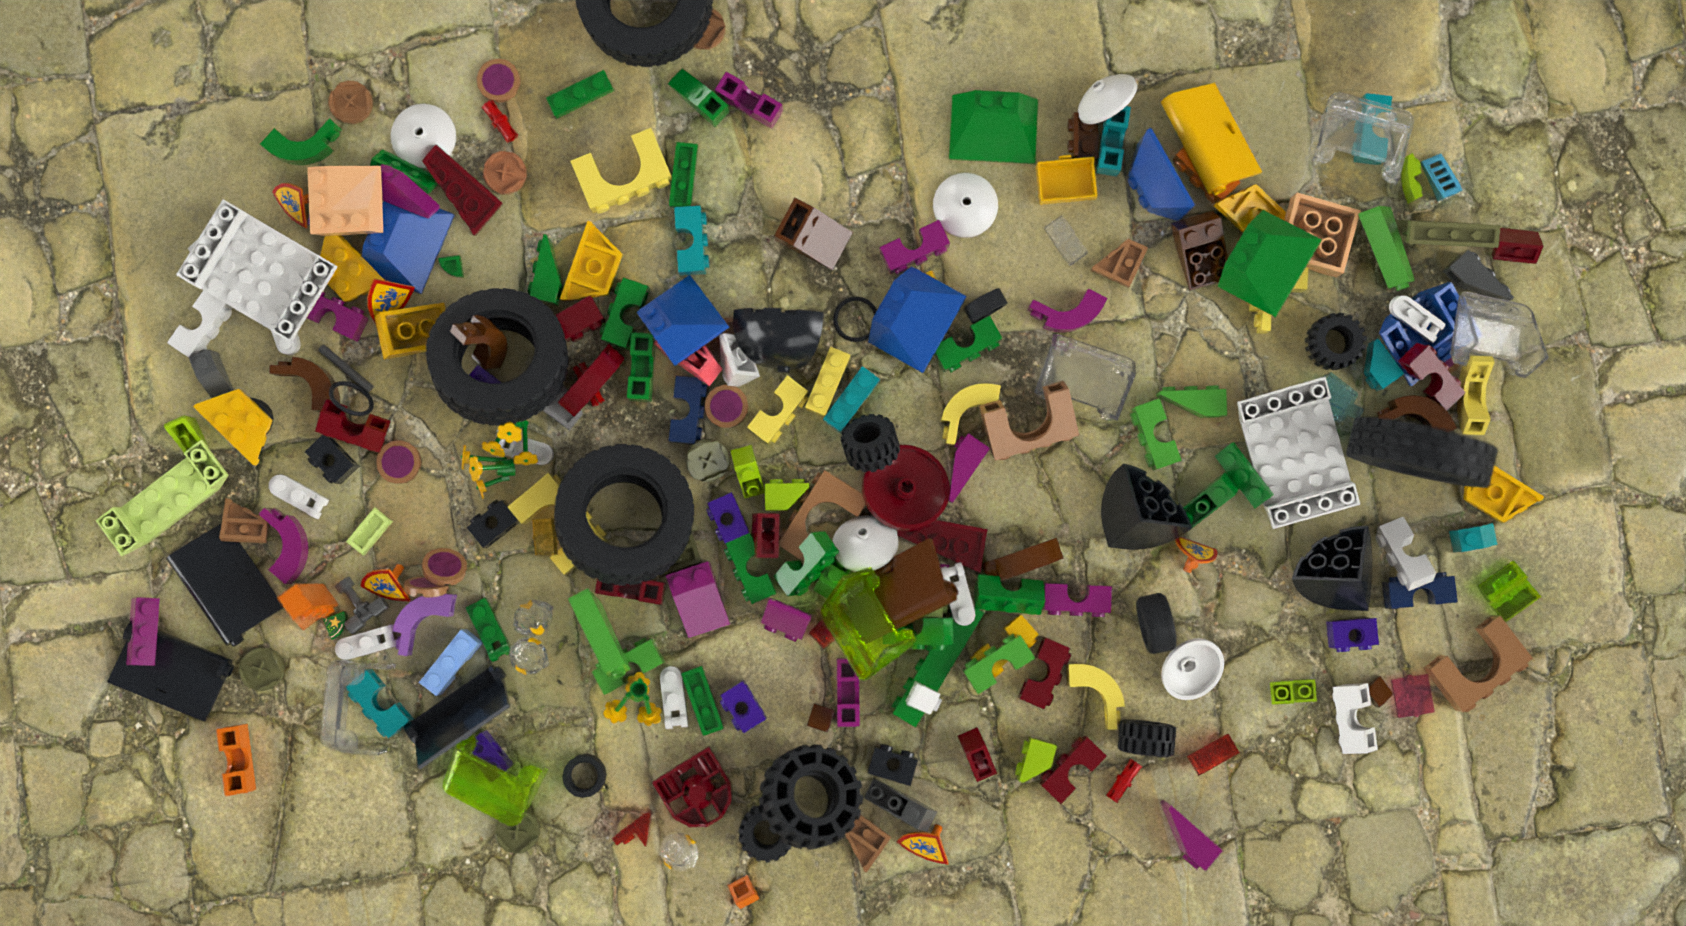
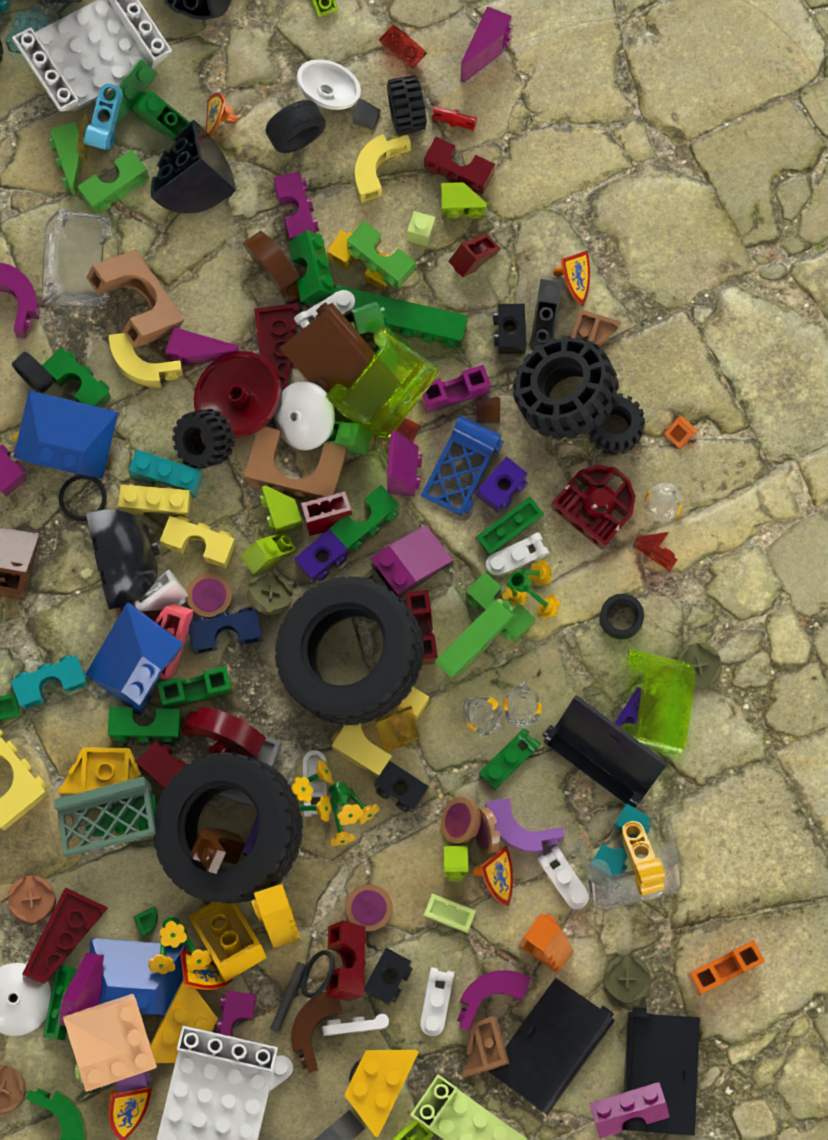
camera: 110 degrees left, 10 degrees down
(298, 419) = (356, 1025): none -> white plate
(330, 717) = (648, 870): none -> yellow piece
(335, 624) = (558, 913): green tile -> none
(363, 611) = (532, 891): dark grey bar -> none
(407, 550) = (455, 862): none -> lime slope
(411, 376) = (275, 911): none -> yellow wedge
(420, 282) = (173, 934): none -> yellow plant
(450, 661) = (551, 780): light blue arch -> none
(564, 261) = (106, 797): none -> sand green fence
(795, 696) = (479, 441): none -> blue piece
(818, 554) = (327, 450): green arch -> none
(923, 698) = (435, 313): white slope -> none
(1018, 712) = (421, 228): none -> yellowish green brick
(1040, 692) = (395, 214): dark red arch -> none
(1153, 696) = (365, 114): none -> dark grey slope
(1207, 419) = (82, 148): none -> clear yellow piece
(1207, 437) = (101, 133): none -> medium azure piece

